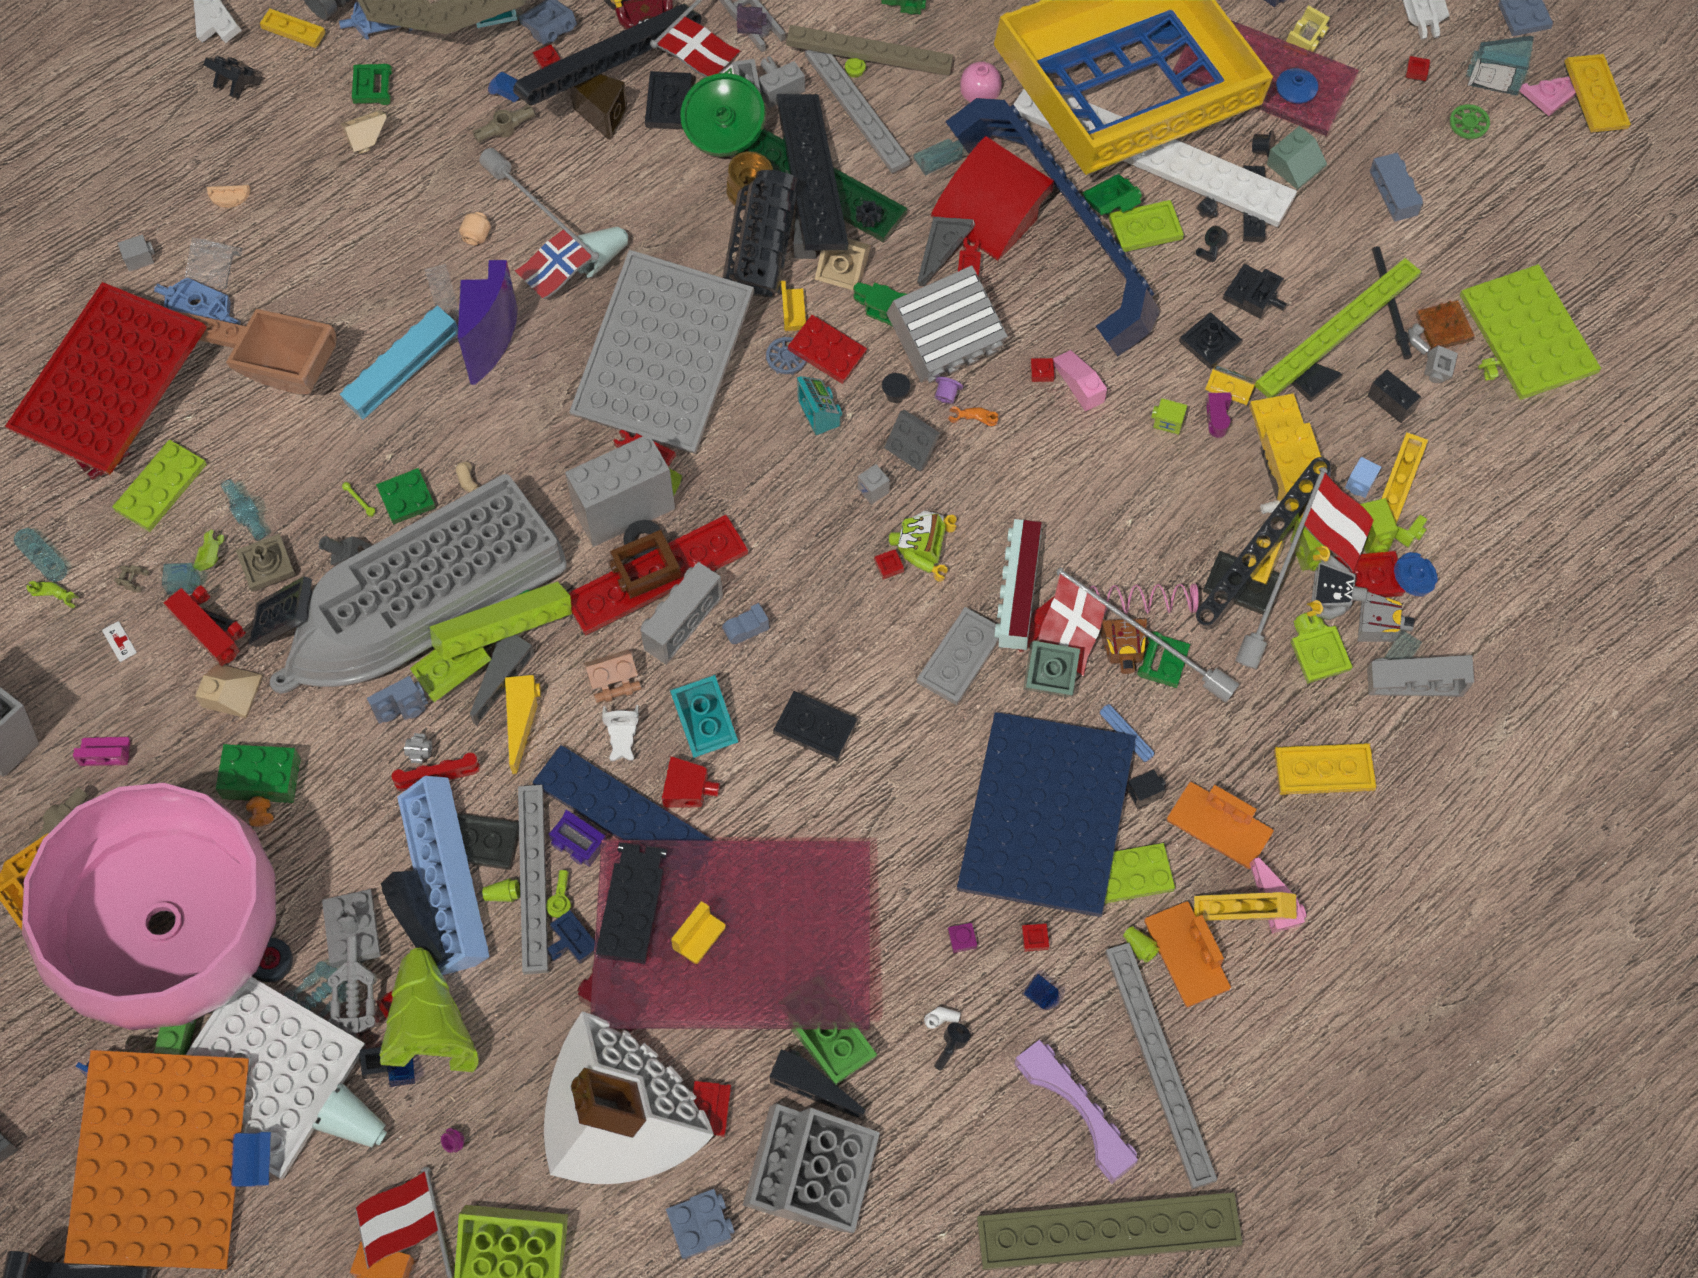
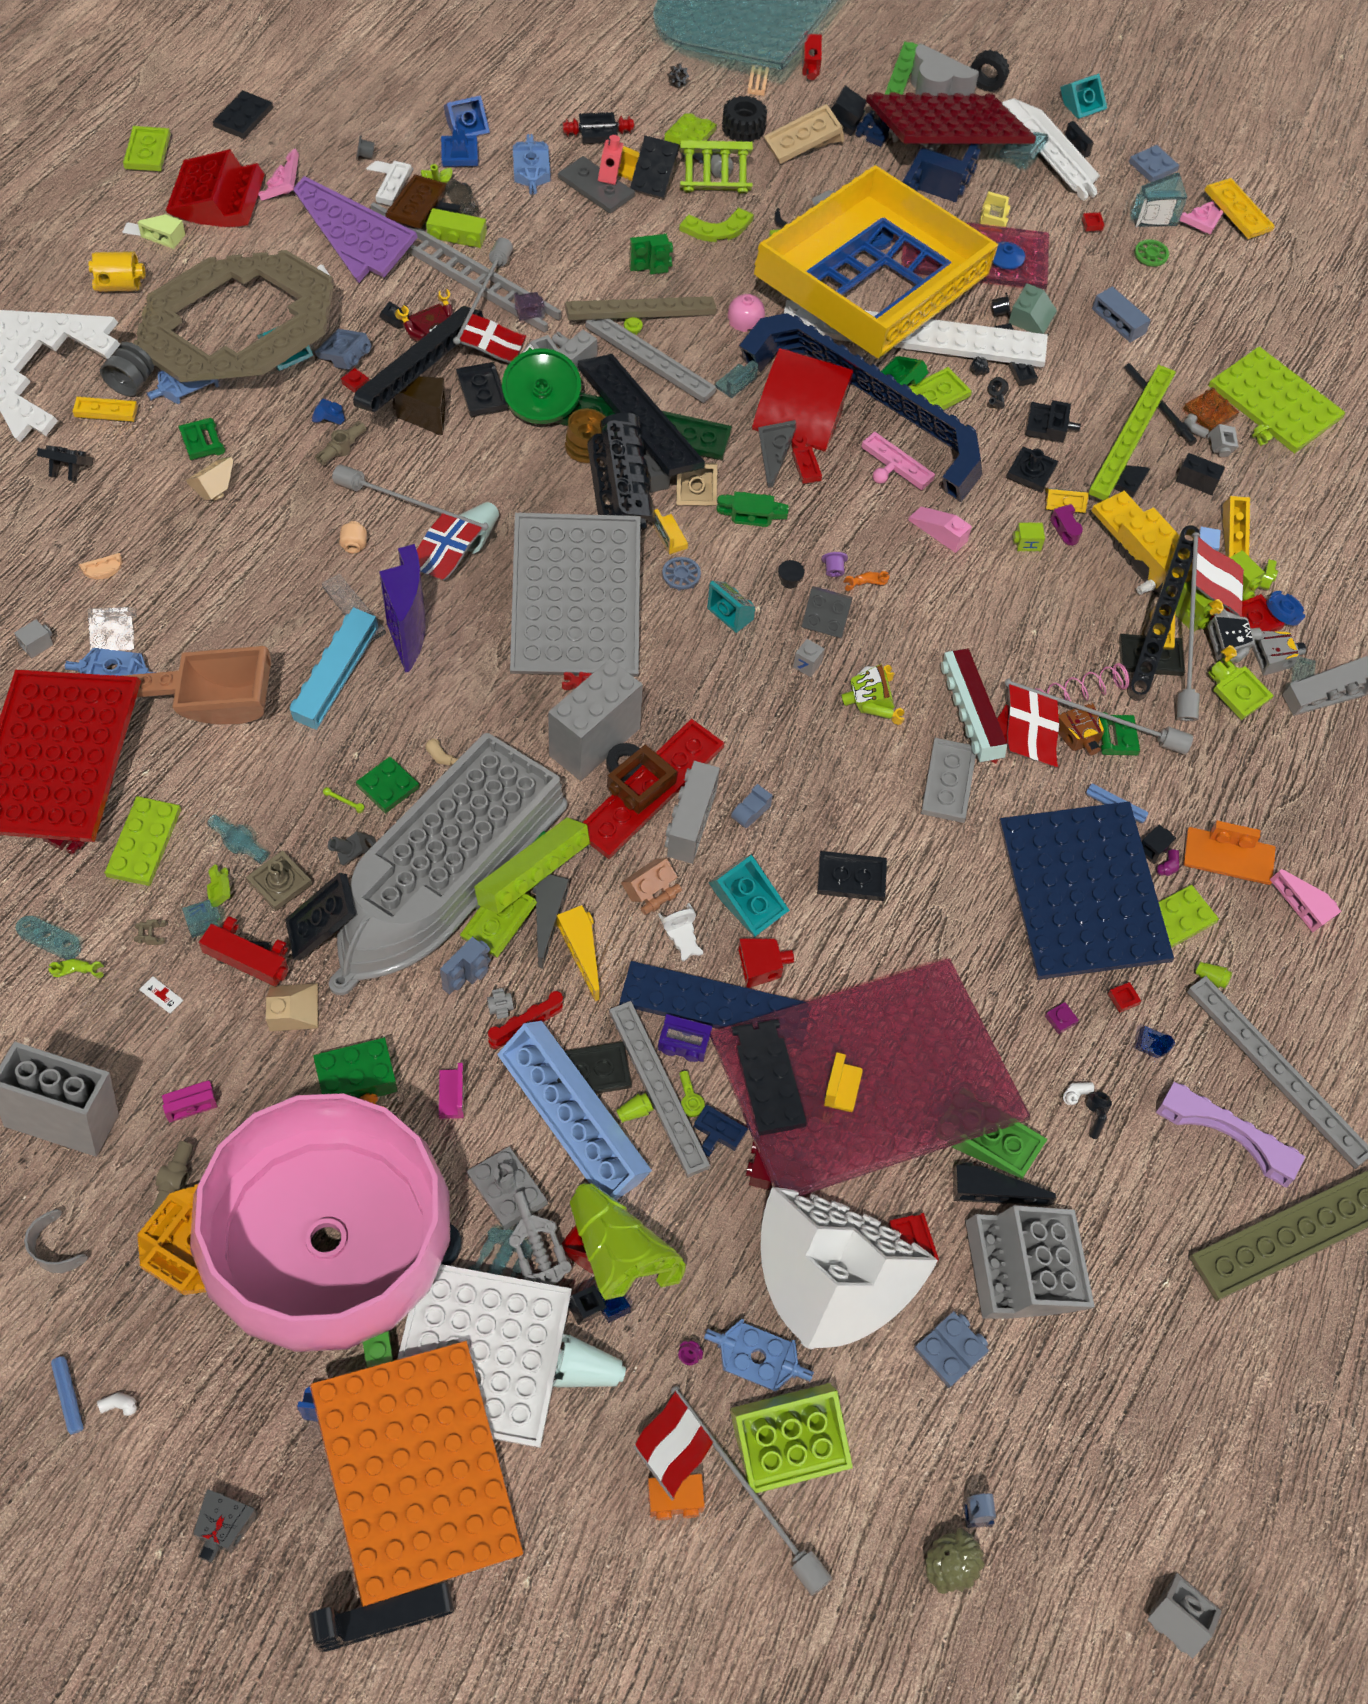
camera: 25 degrees left, 5 degrees down
(251, 1159) = (509, 1437): blue panel -> none
(340, 820) = (451, 1093): none -> dark pink panel
(411, 908) = (561, 1153): black slope -> none
(496, 1154) = (743, 1340): none -> medium blue plate
(625, 1093) = (839, 1261): reddish brown window -> none
(827, 349) = (715, 558): red plate -> none
(868, 213) = (704, 437): black gear -> none
(889, 564) = (852, 721): red plate -> none
(947, 325) = (816, 508): light grey brick -> none
(1042, 370) = (905, 528): red plate -> none
(1051, 669) = (1034, 766): sand green brick -> none
(1066, 292) = (896, 460): none -> bright pink plate
(1153, 816) = (1170, 866): none -> magenta arm
(1188, 953) = (1258, 968): orange bracket -> none
(1246, 906) = (1288, 914): yellow slope -> none
(1324, 769) = (1289, 784): yellow tile -> none

